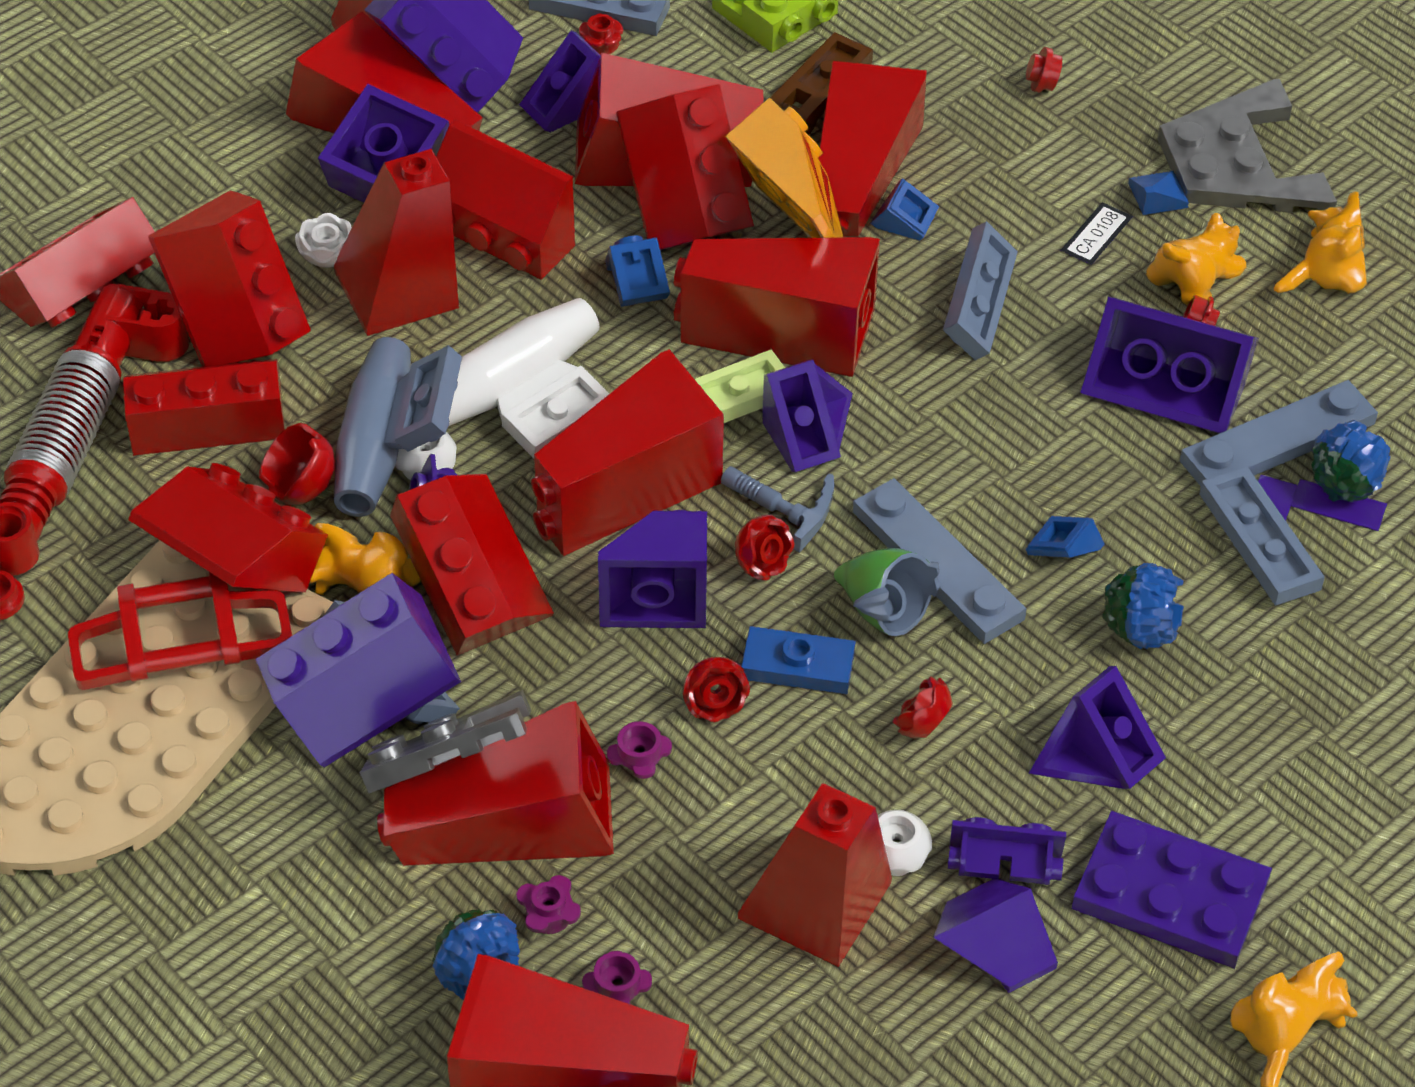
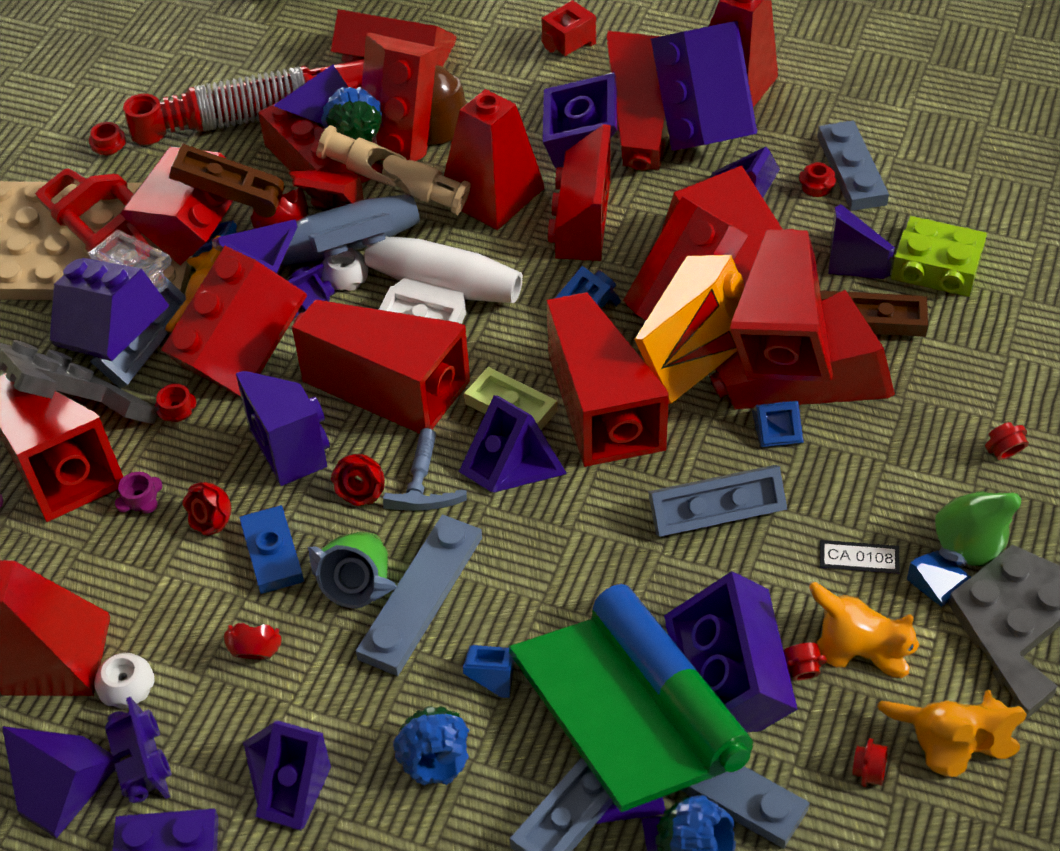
camera: 65 degrees right, 0 degrees up
(159, 342) = (313, 95): none -> dark purple slope
(202, 120) = (568, 28): none -> red brick
(239, 324) = (353, 113): none -> dark green piece
(264, 465) = (228, 179): none -> reddish brown plate
(308, 600) = (129, 251): none -> clear plate
(313, 398) = (329, 188): none -> red slope
(374, 319) = (411, 176): none -> tan piece
(381, 472) = (263, 244): none -> dark purple slope
(526, 661) = (175, 403): none -> red plate
(724, 48) = (857, 248): none -> dark purple slope
(853, 106) = (781, 313): none -> red slope
(1135, 128) = (976, 527): none -> bright green hat
(1182, 439) = (632, 702): none -> green door
(1331, 322) = (870, 763): none -> red plate

